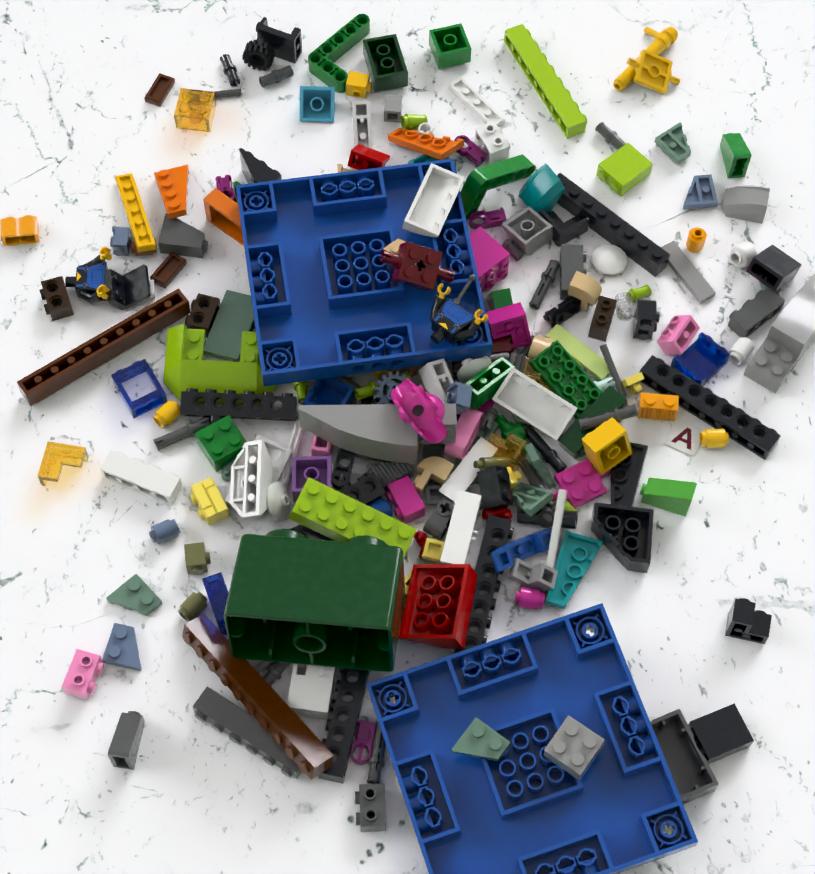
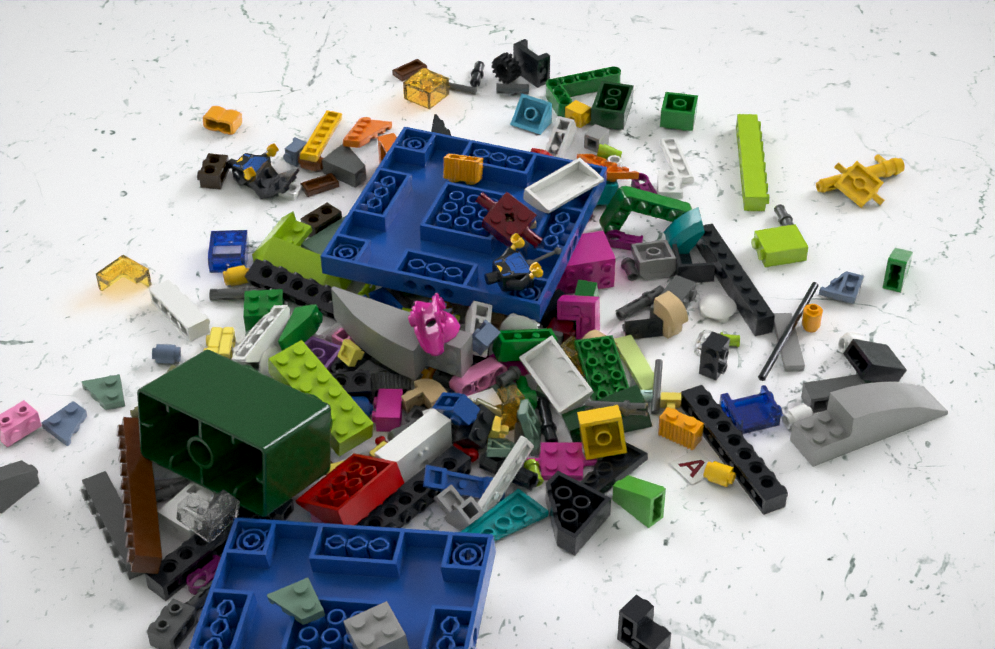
camera: 30 degrees right, 20 degrees down
(104, 347) = (220, 212): reddish brown brick -> none
(281, 453) = (301, 325): none -> green slope
(323, 214) = (463, 168): none -> light orange brick
(342, 694) = (208, 518): none -> clear brick
(345, 463) = (350, 353): none -> light yellow tile
(477, 481) = (457, 408): none -> blue brick
(529, 598) = (443, 523): dark pink brick -> none
(602, 318) = (675, 344): dark brown brick -> none
(674, 143) = (844, 243): sand green wing -> none
(678, 334) = (747, 378): bright pink brick -> none
(684, 258) = (788, 331): none -> black piece
(746, 202) = (887, 309): light grey slope -> none

